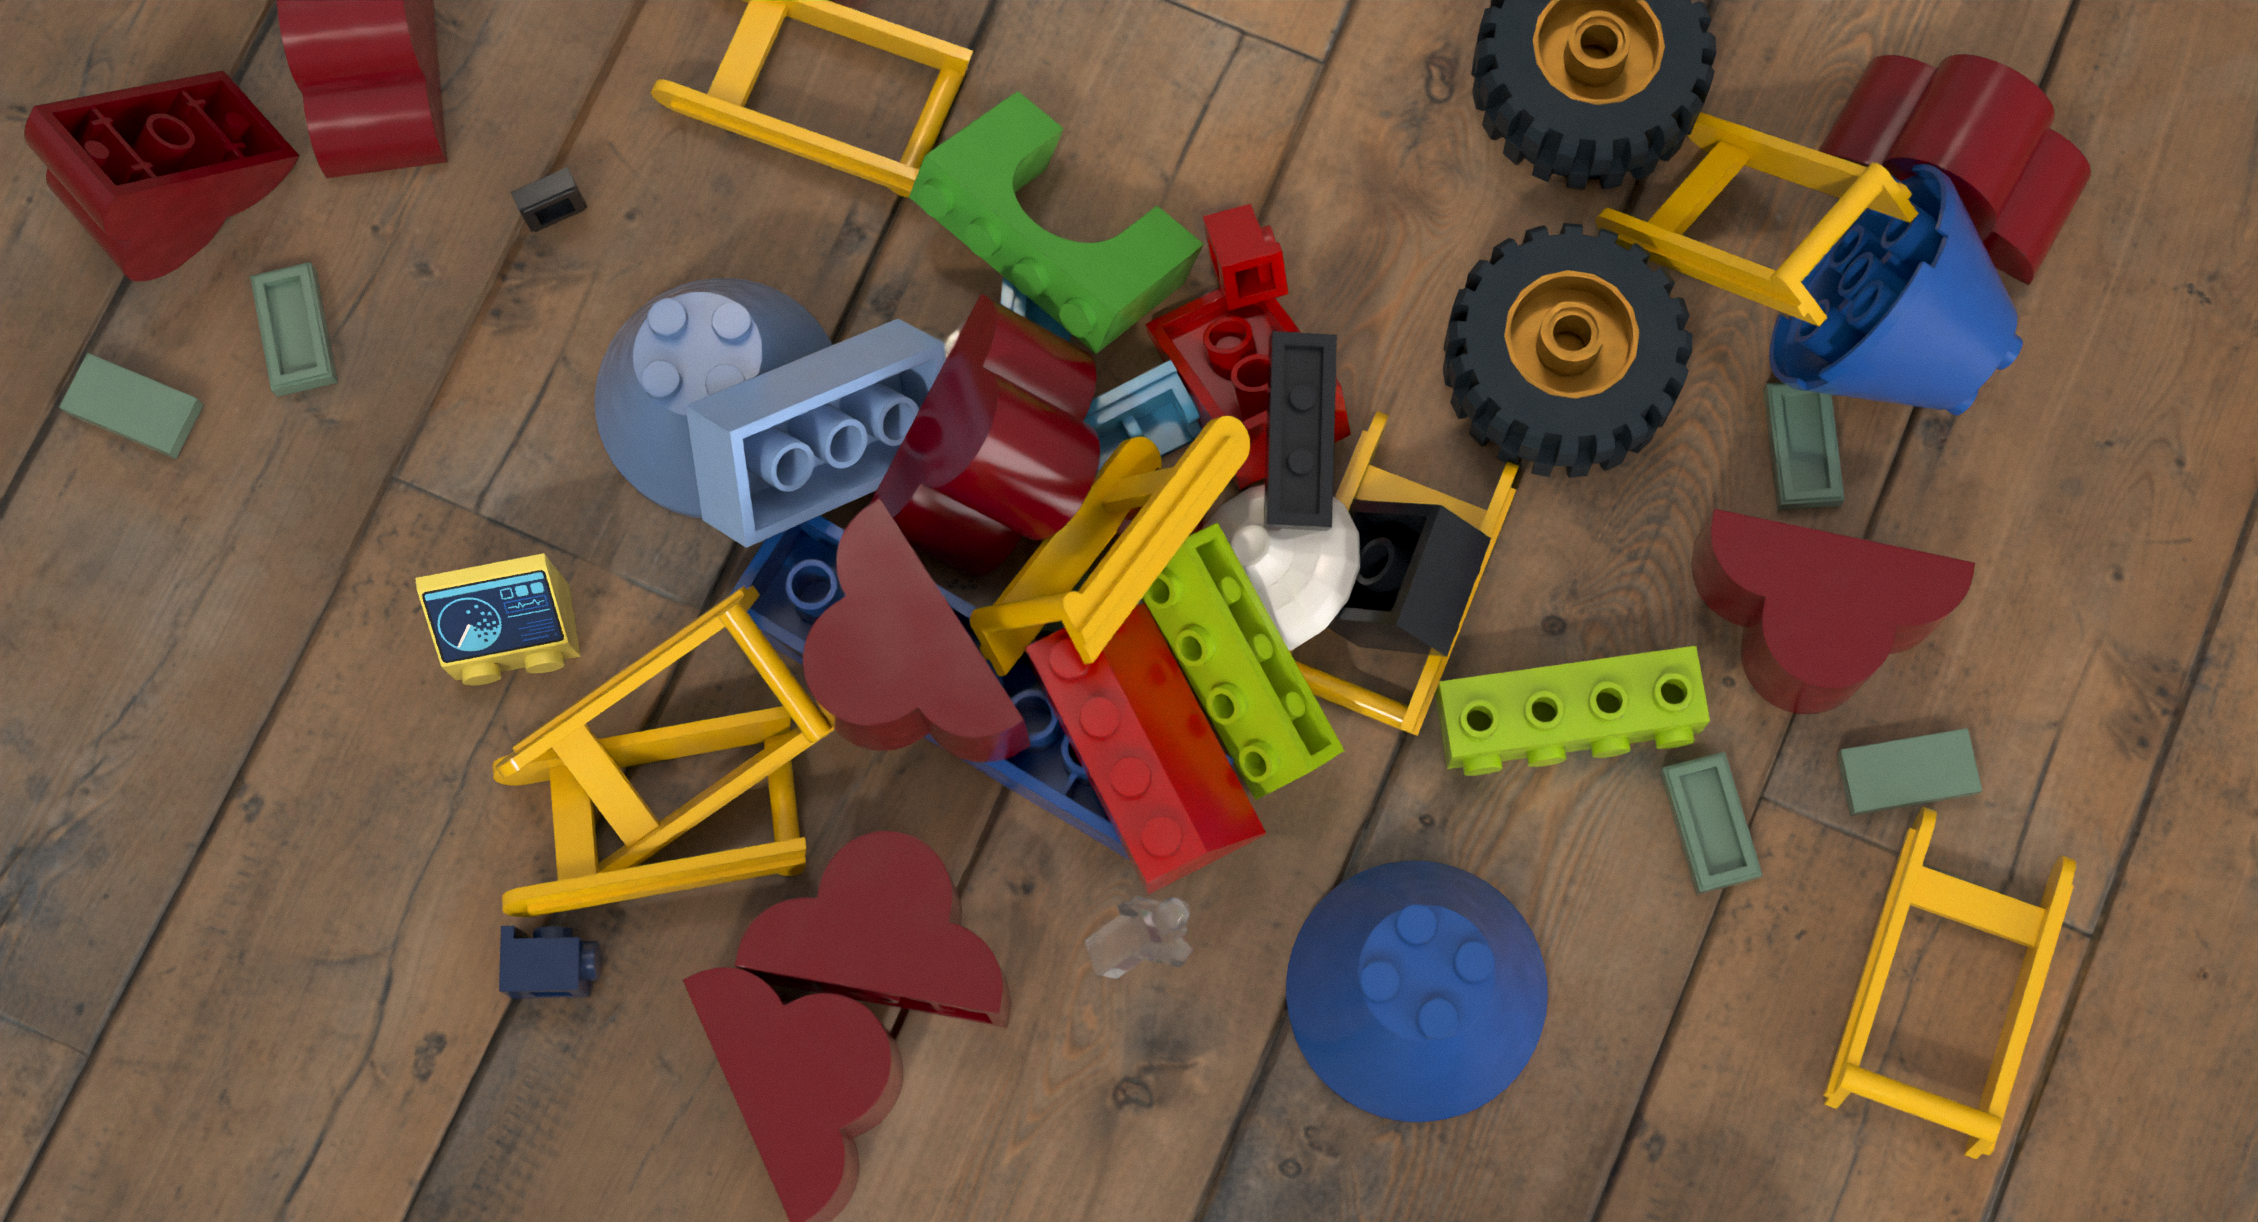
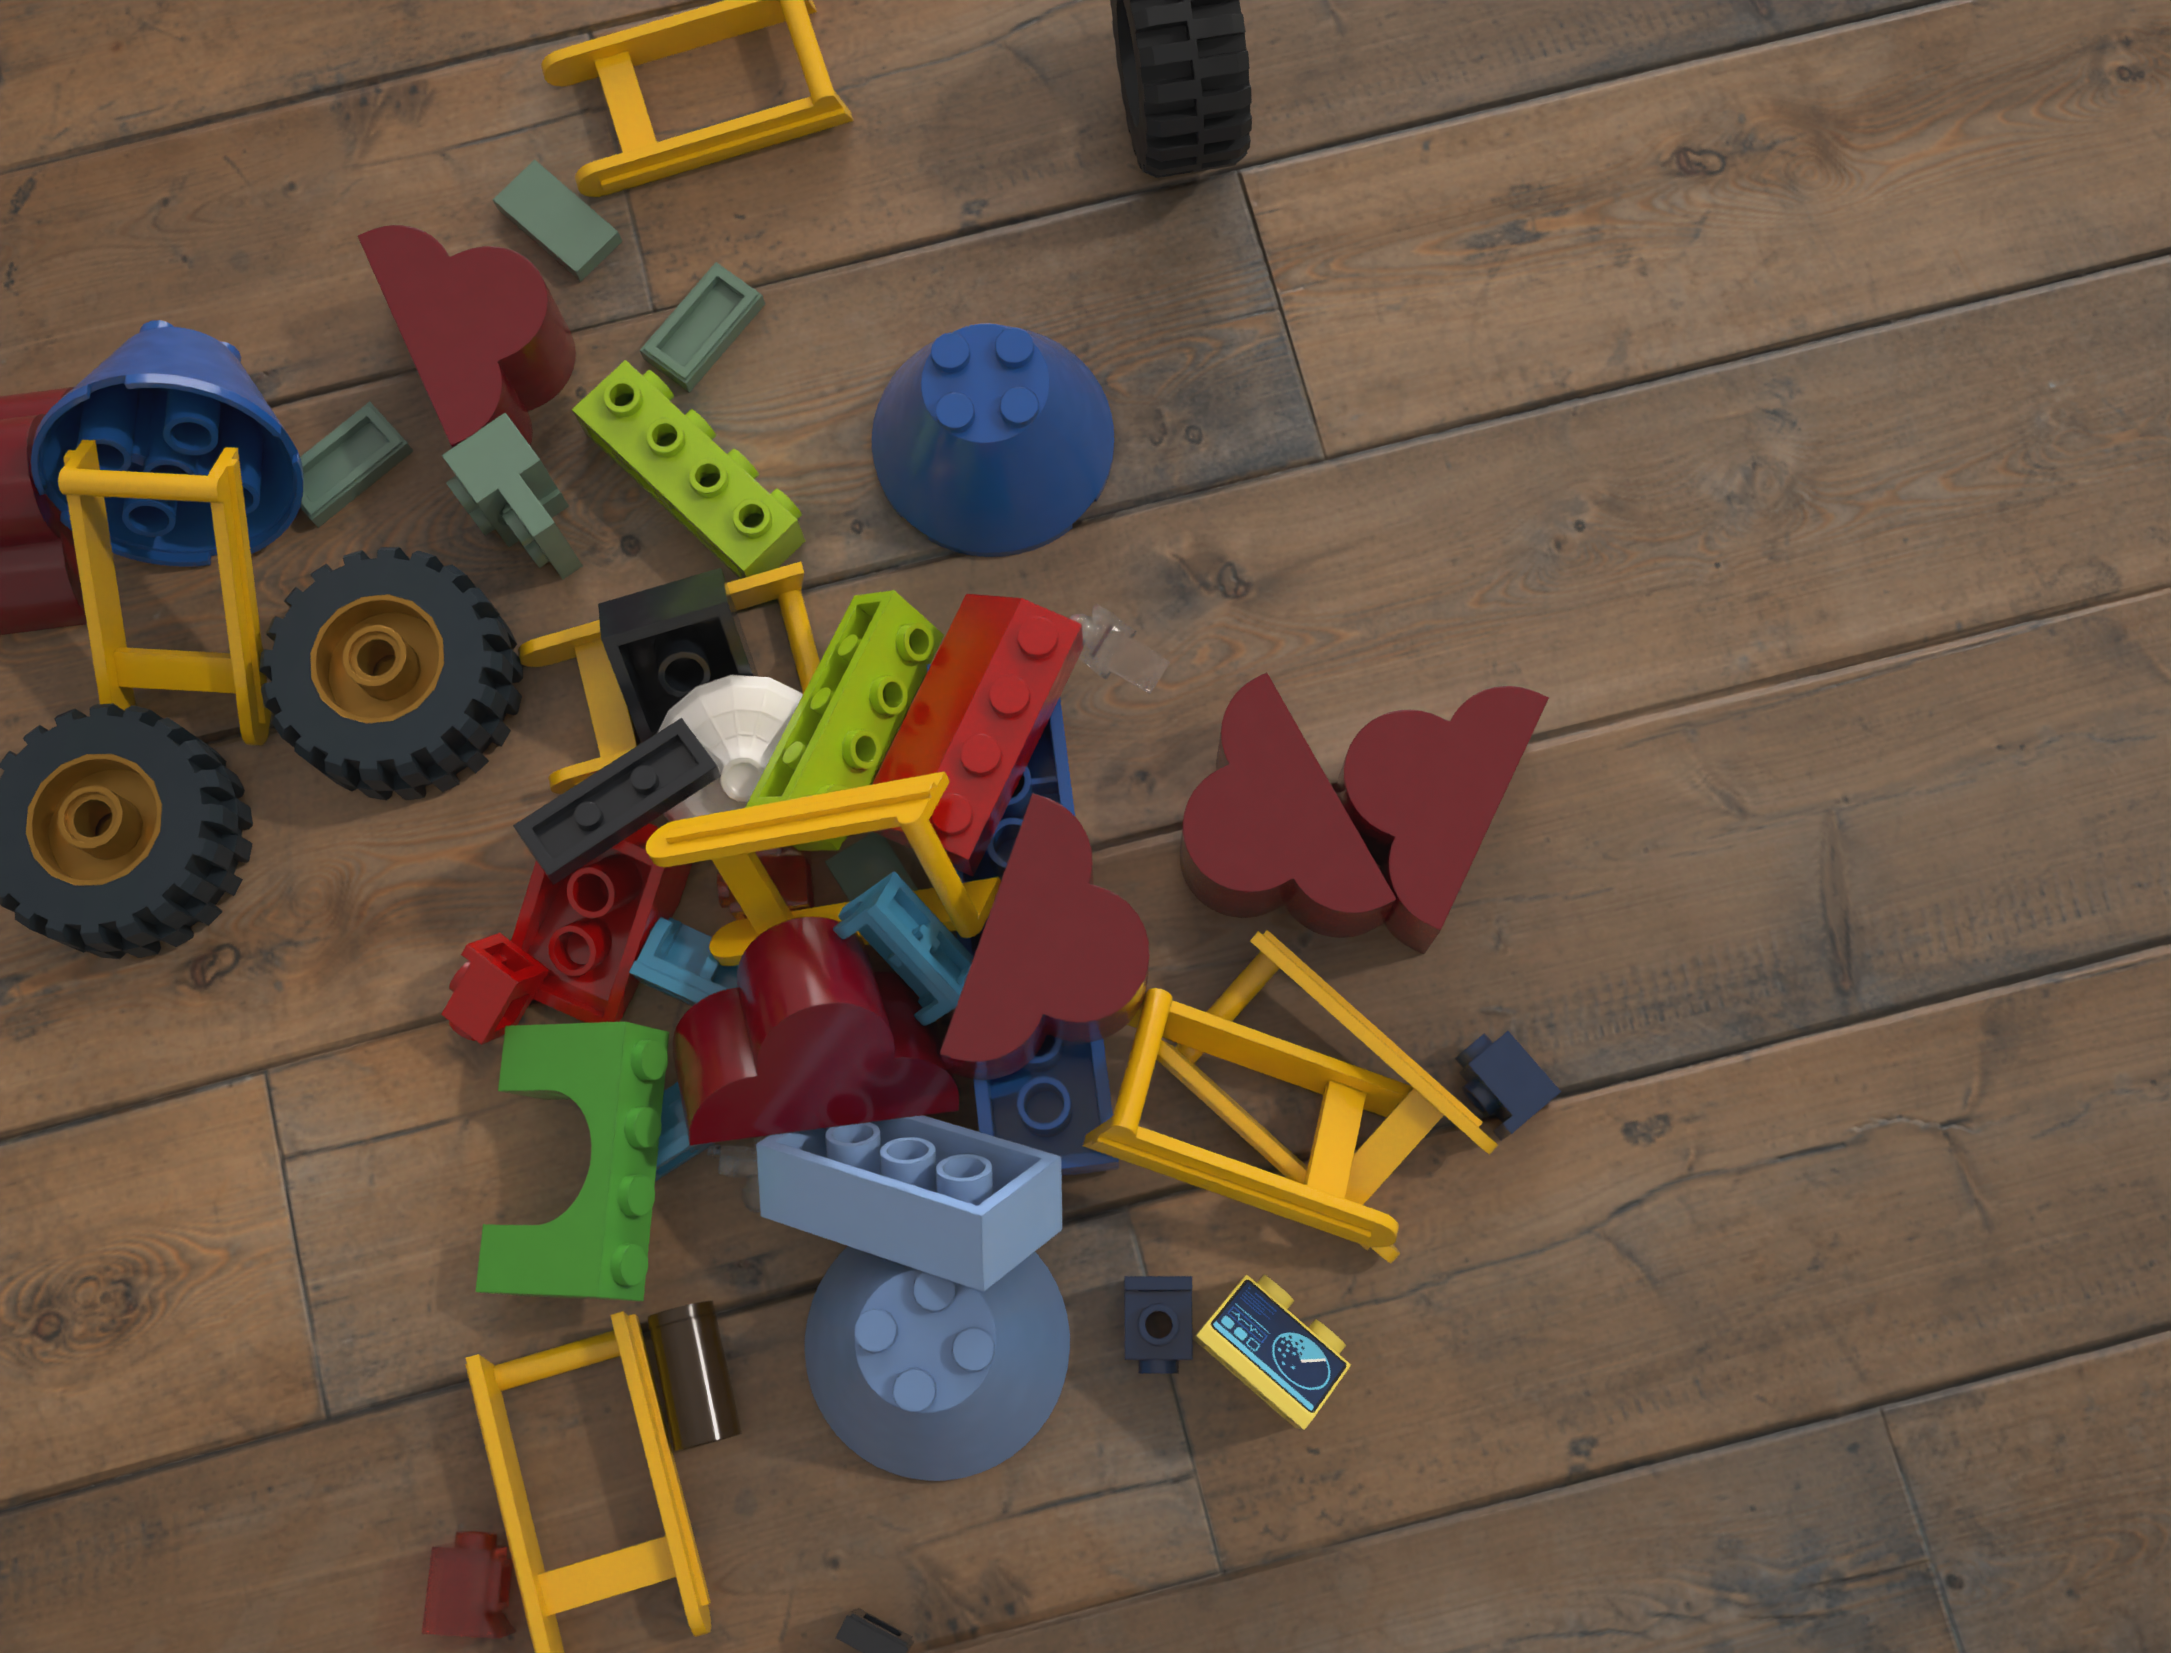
camera: 130 degrees left, 0 degrees up
(608, 578) = (1158, 1294): none -> dark blue brick
(835, 205) = (694, 1375): none -> dark brown pin
(1003, 565) = (911, 943): none -> dark azure hinge
(1659, 549) = (511, 491): none -> sand green brick

